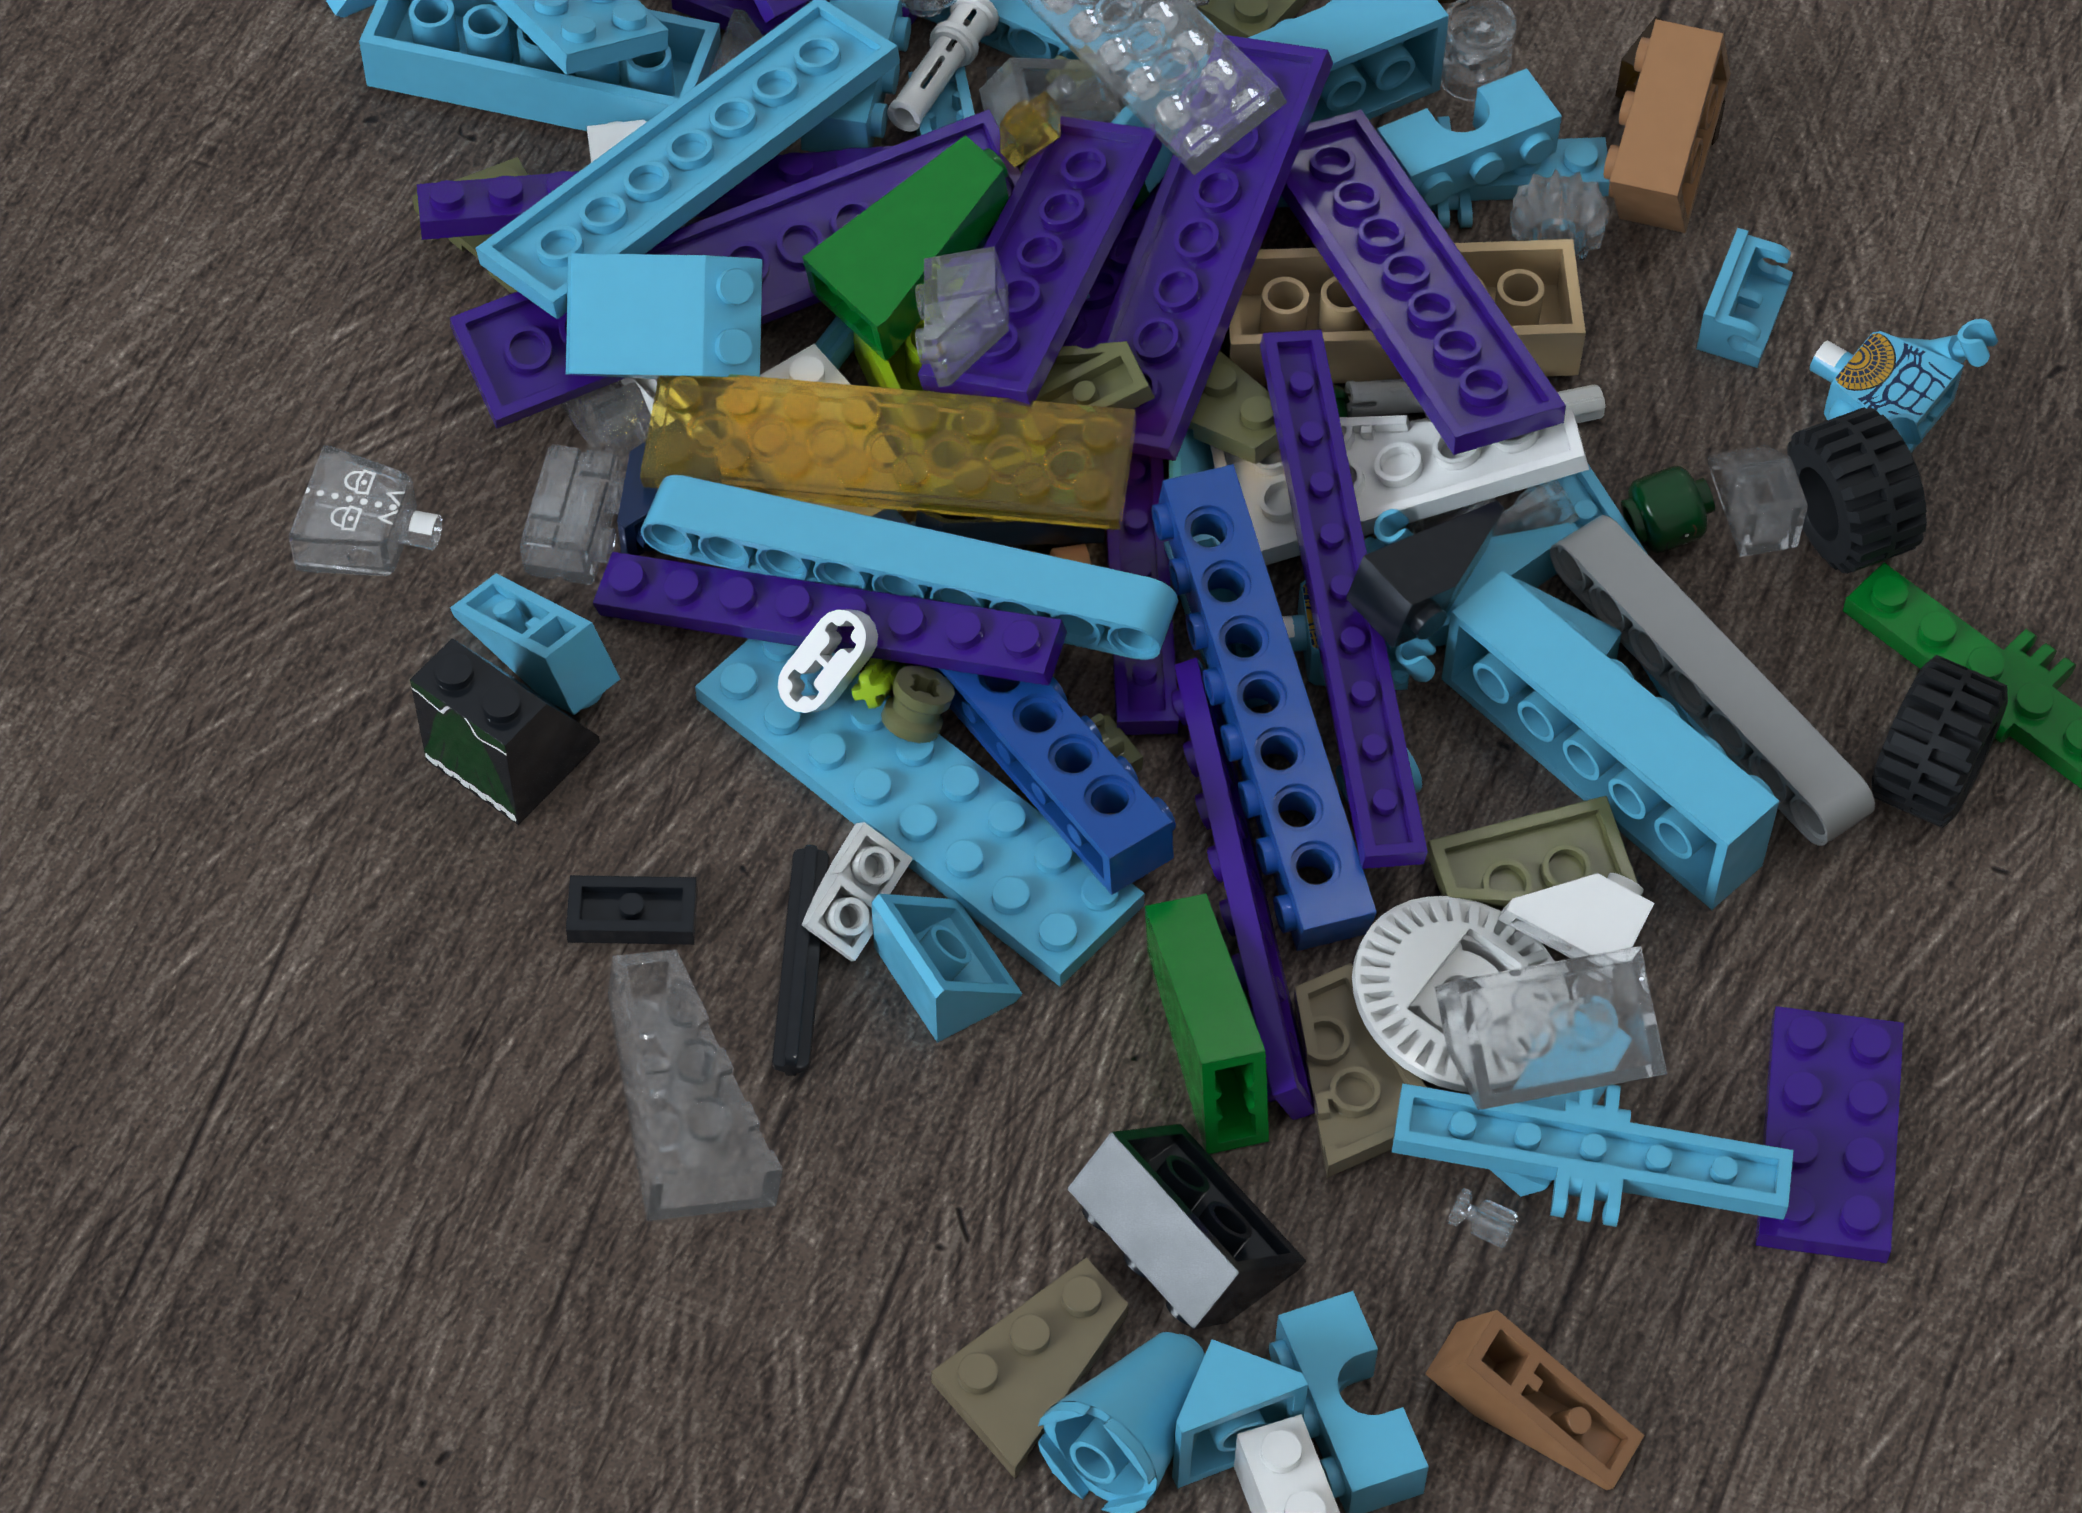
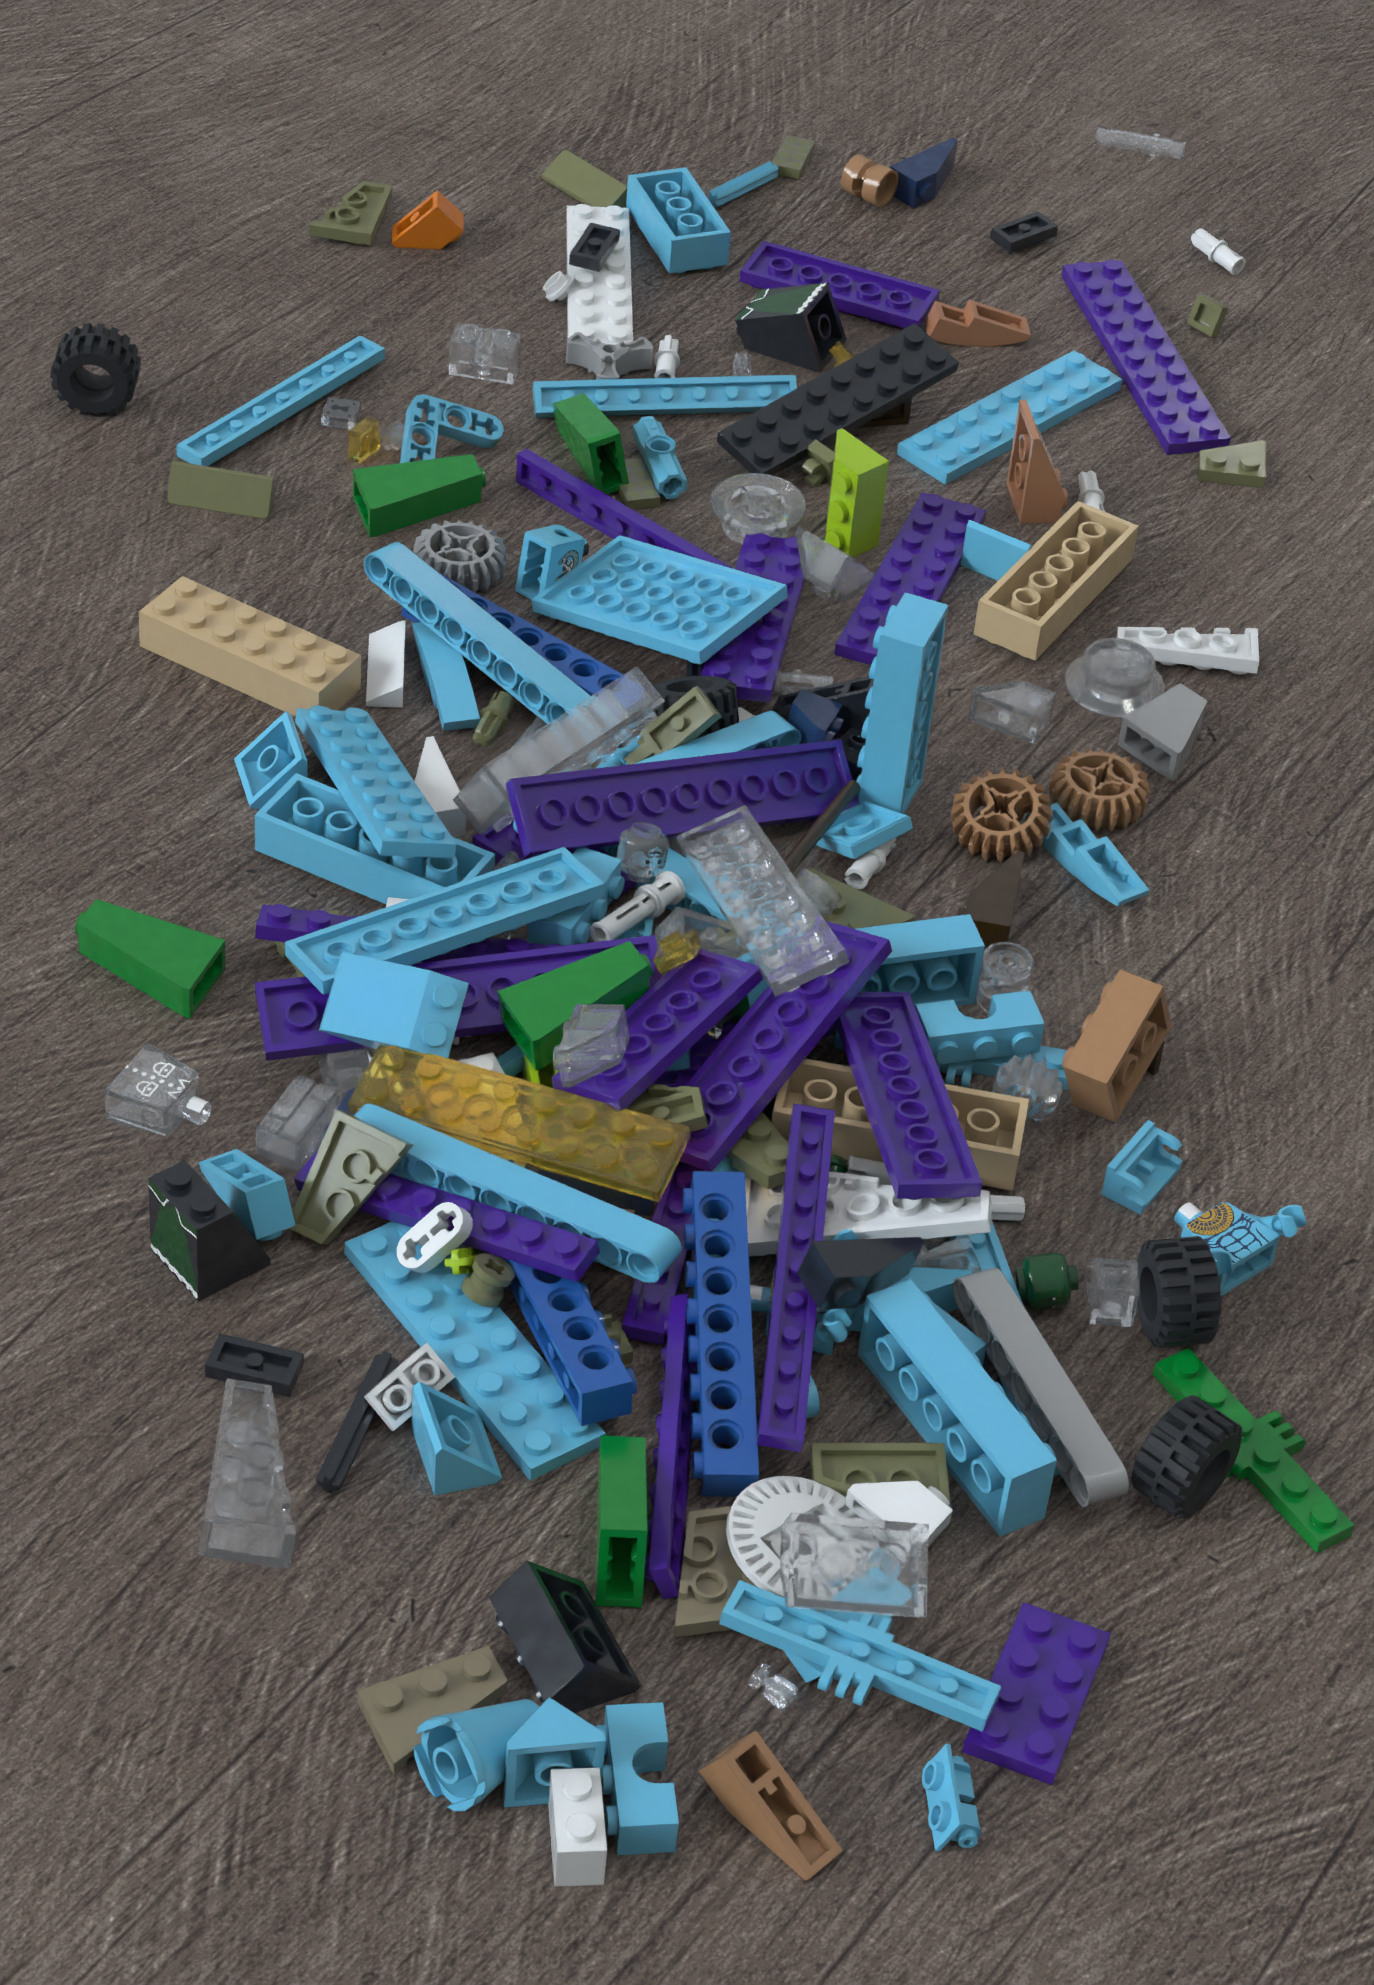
camera: 10 degrees right, 15 degrees down
(279, 294) = (152, 954): none -> green slope
(671, 590) = (344, 1175): none -> olive wing
(1753, 1307) = (946, 1784): none -> medium azure hinge

